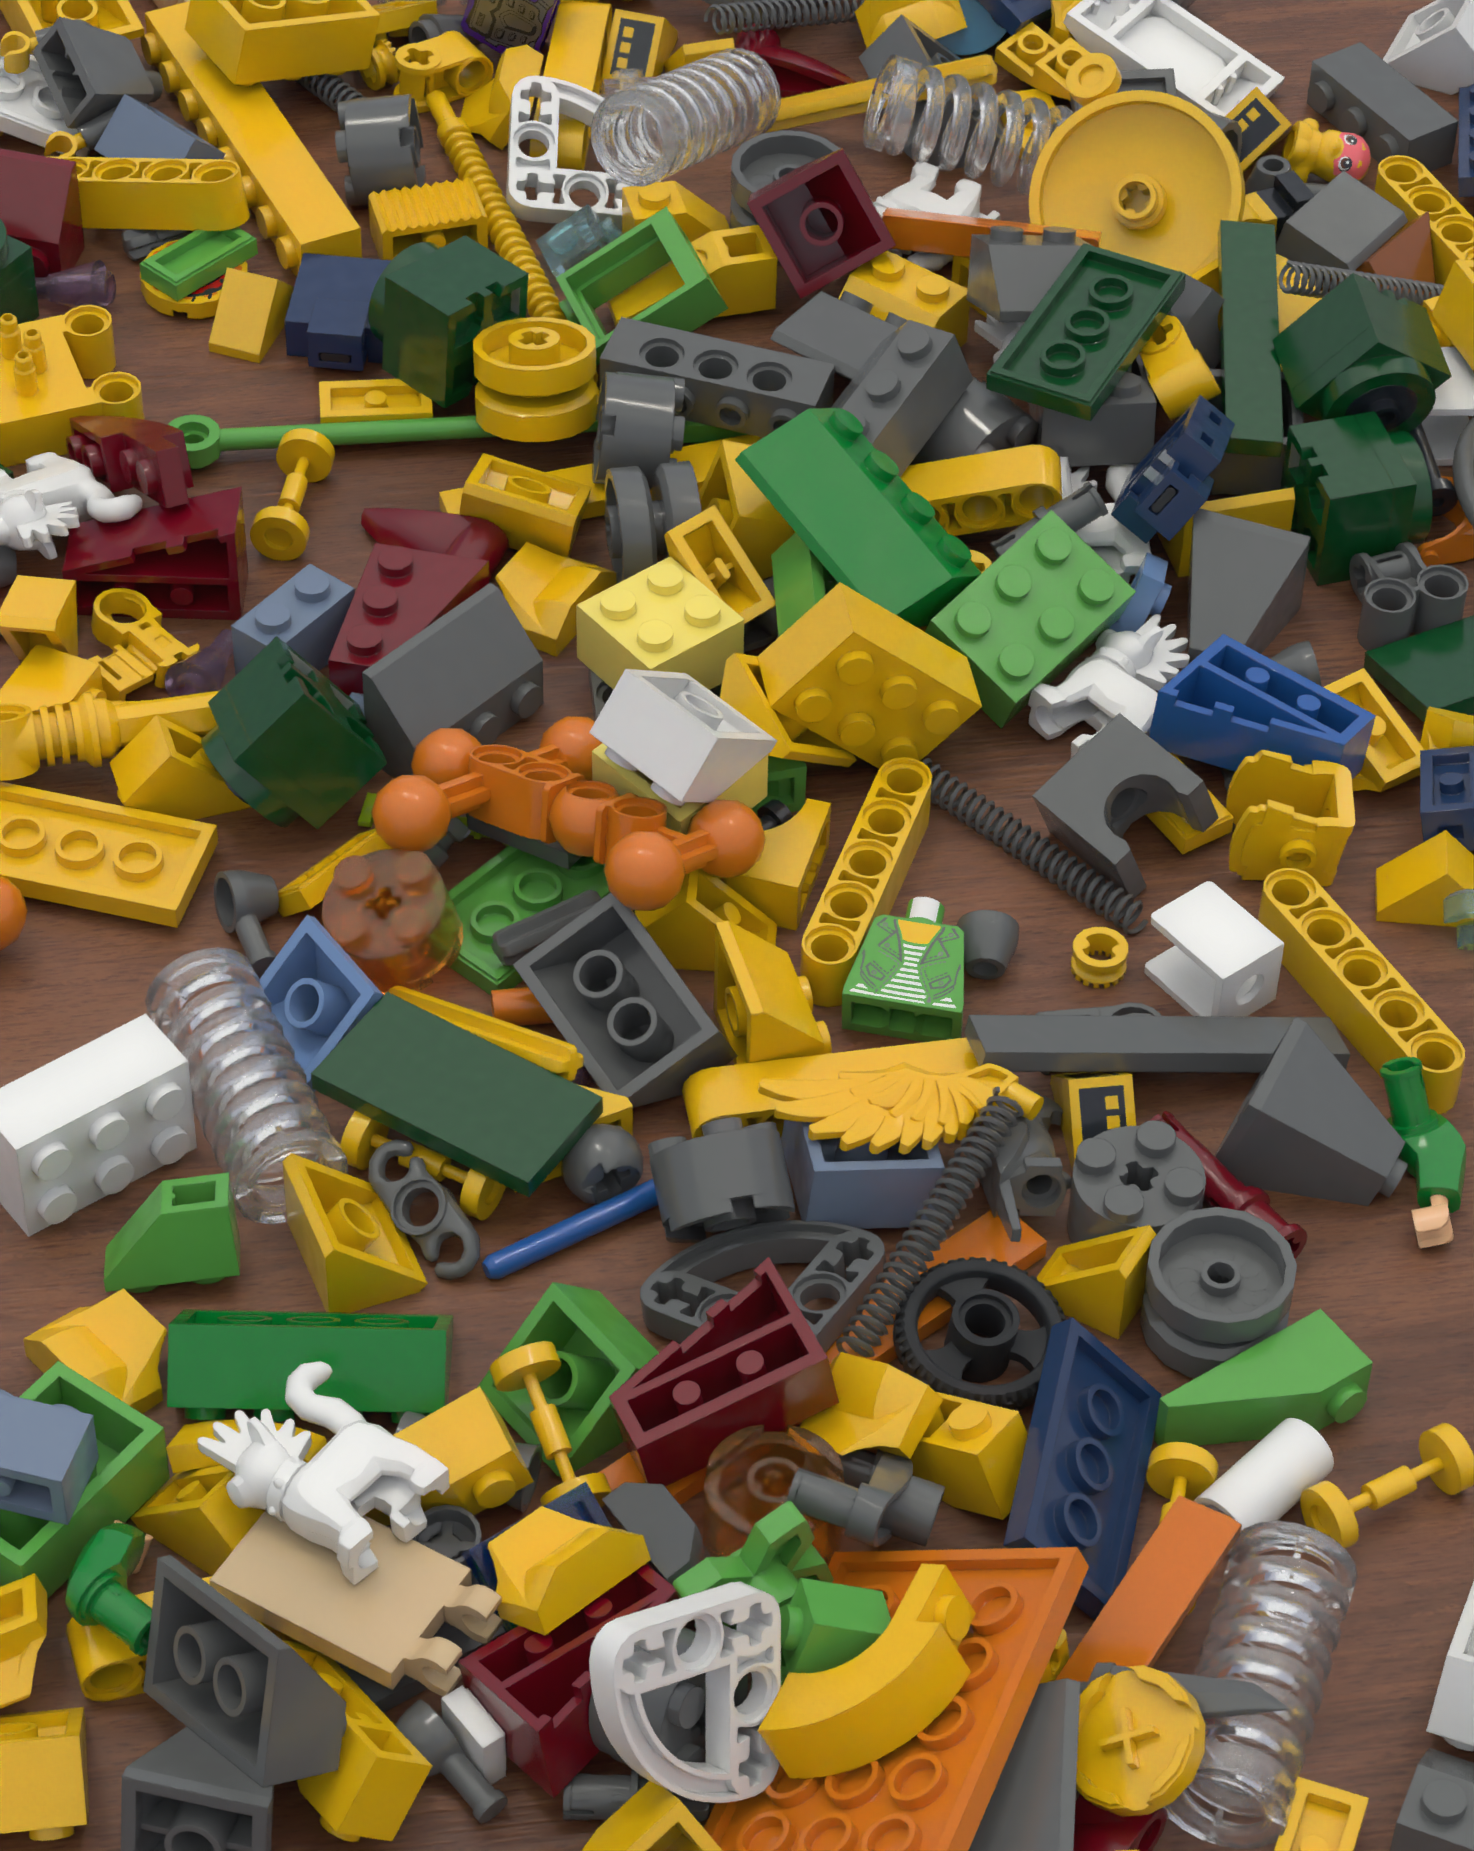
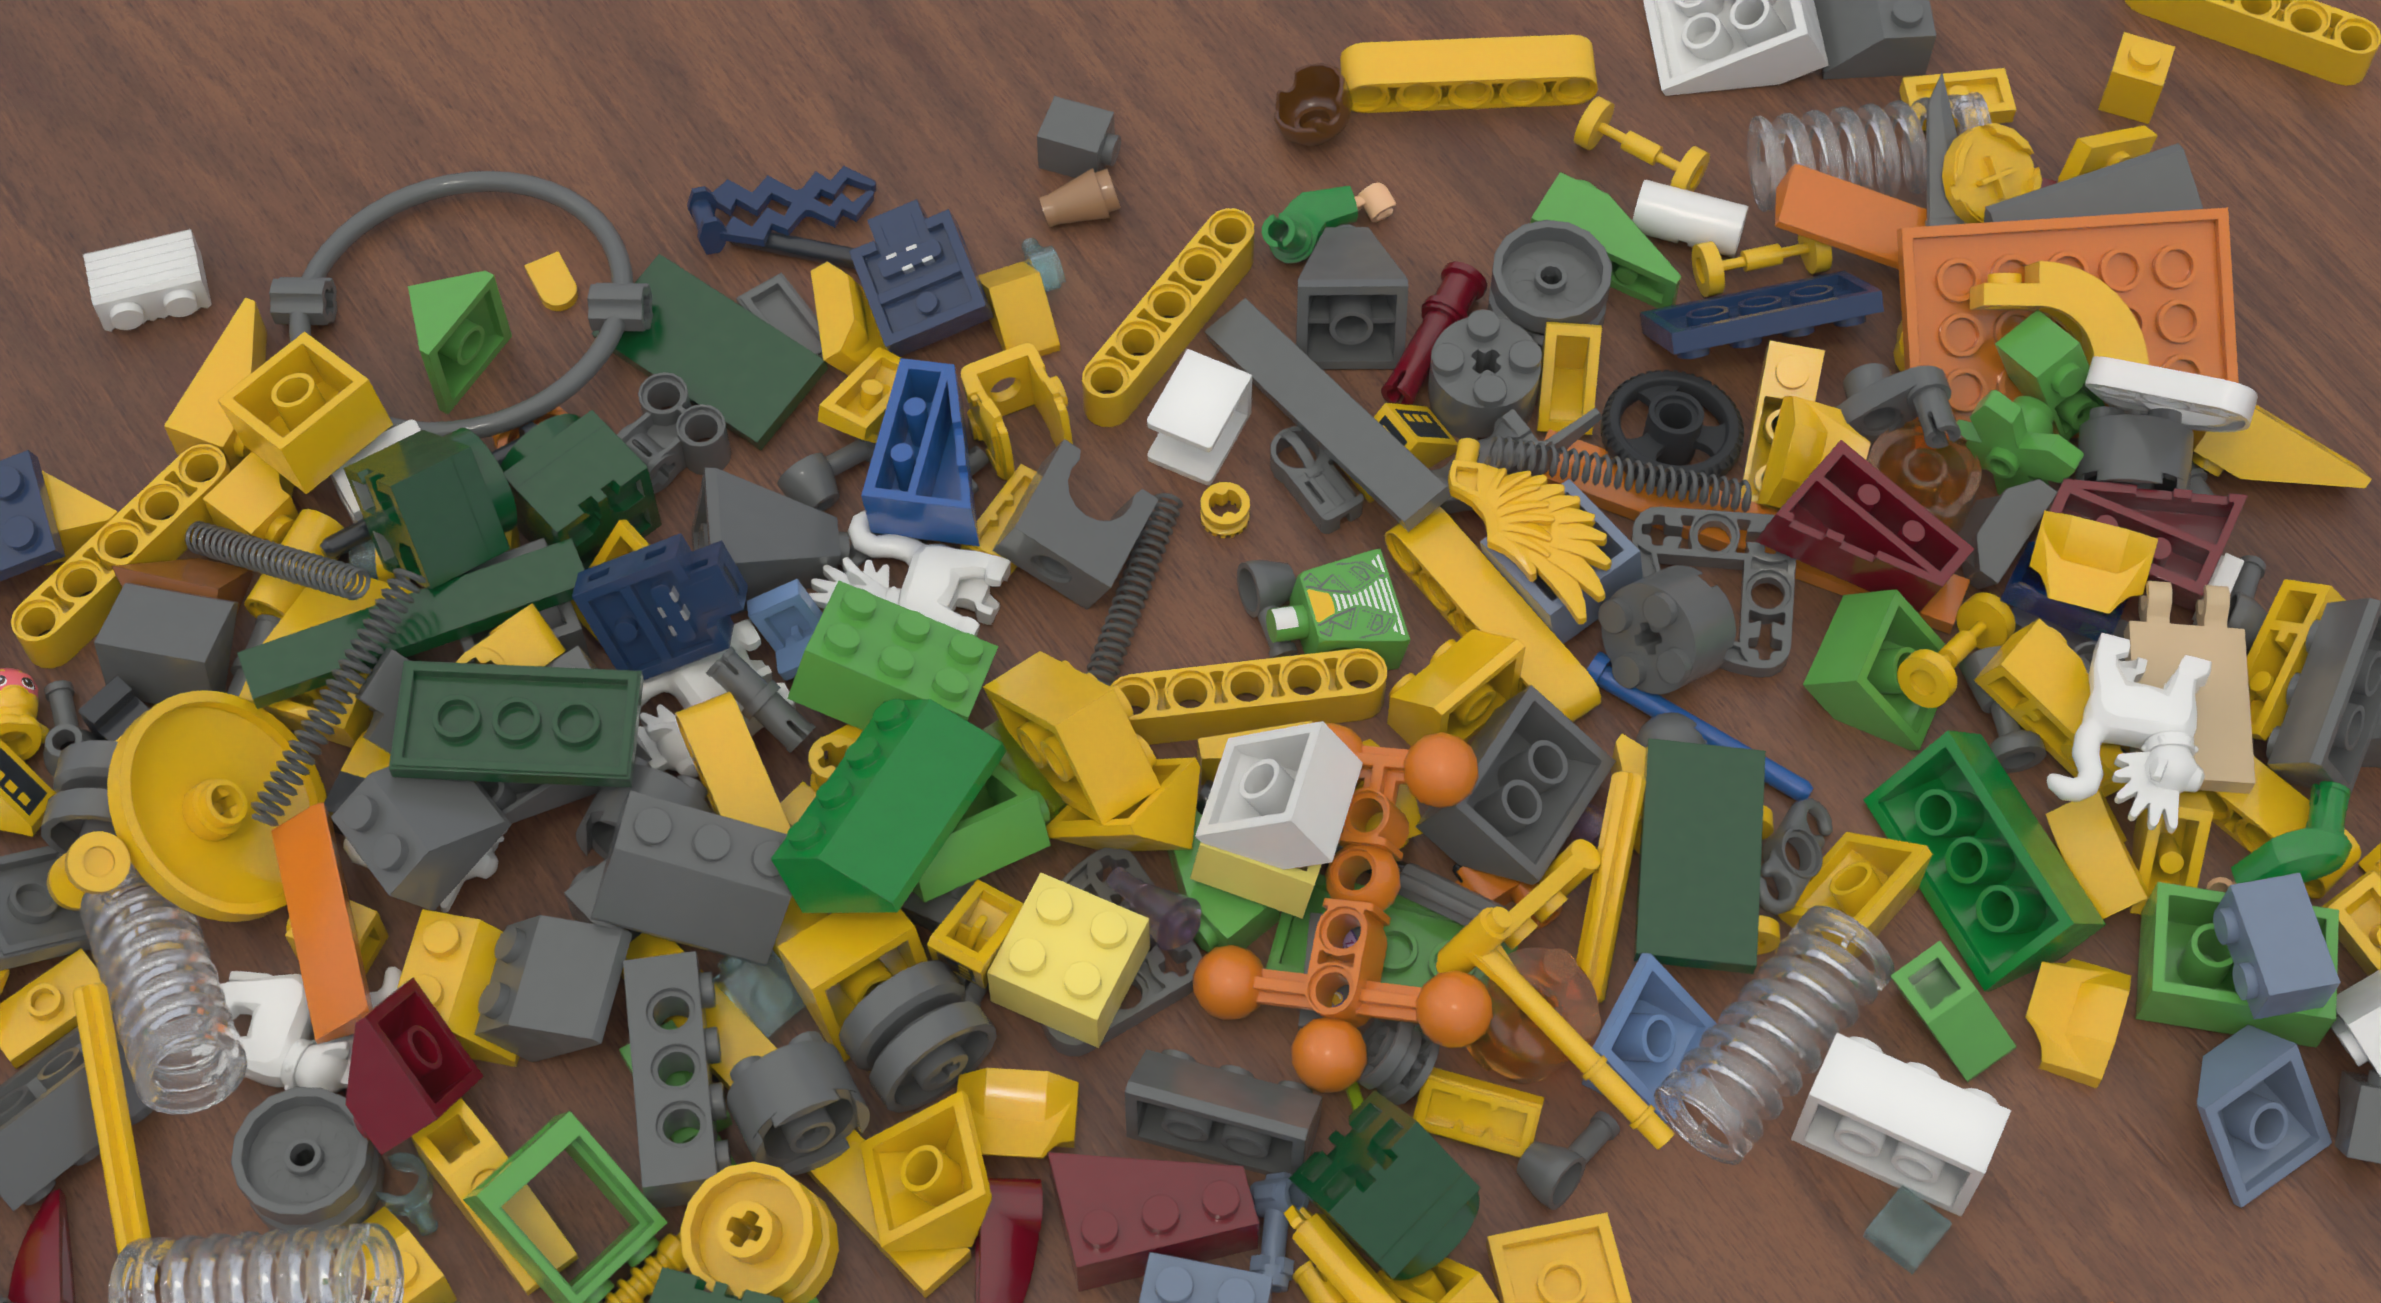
camera: 115 degrees left, 15 degrees up
(451, 843) = (1481, 947): none -> yellow piece
(1165, 259) = (336, 693): none -> dark grey piece

